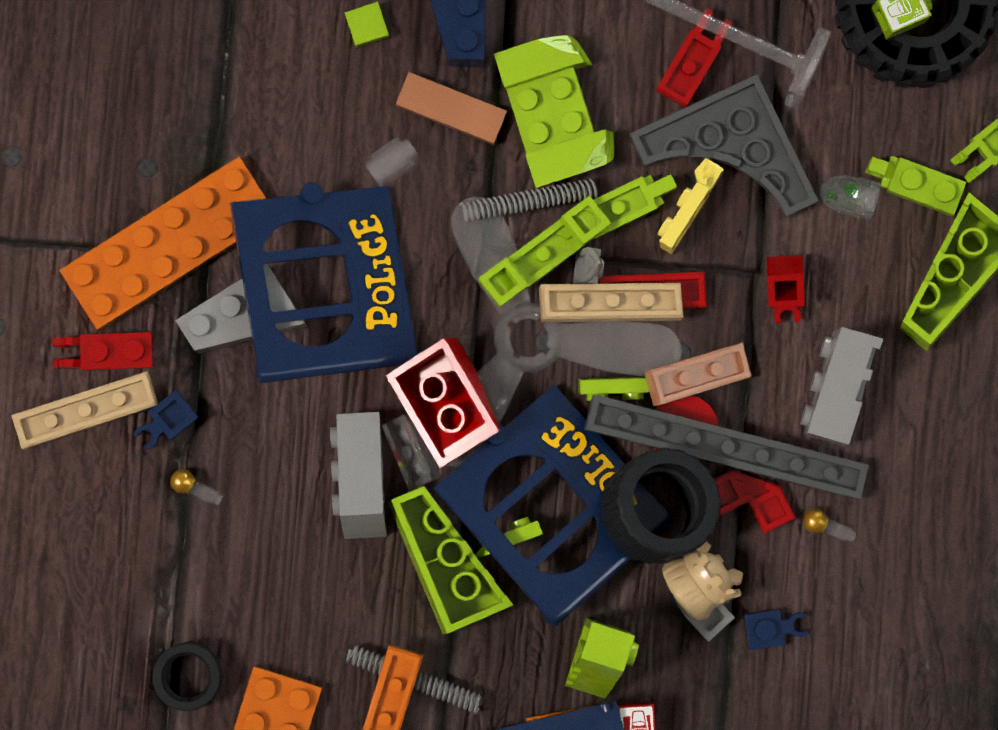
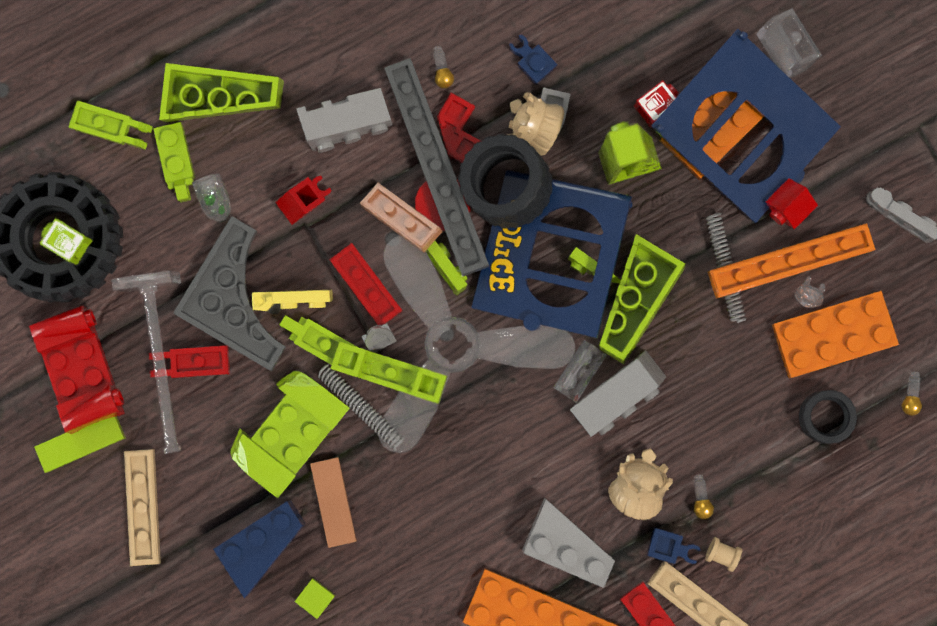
camera: 120 degrees left, 0 degrees up
(122, 469) = (723, 554): none -> tan bush
(250, 431) = (640, 486): none -> tan hair
(379, 305) = (509, 449): dark blue door -> none
(392, 161) = (396, 517): clear brick -> none
(445, 400) = (533, 369): red slope -> none
(610, 302) = (393, 306): tan tile -> none

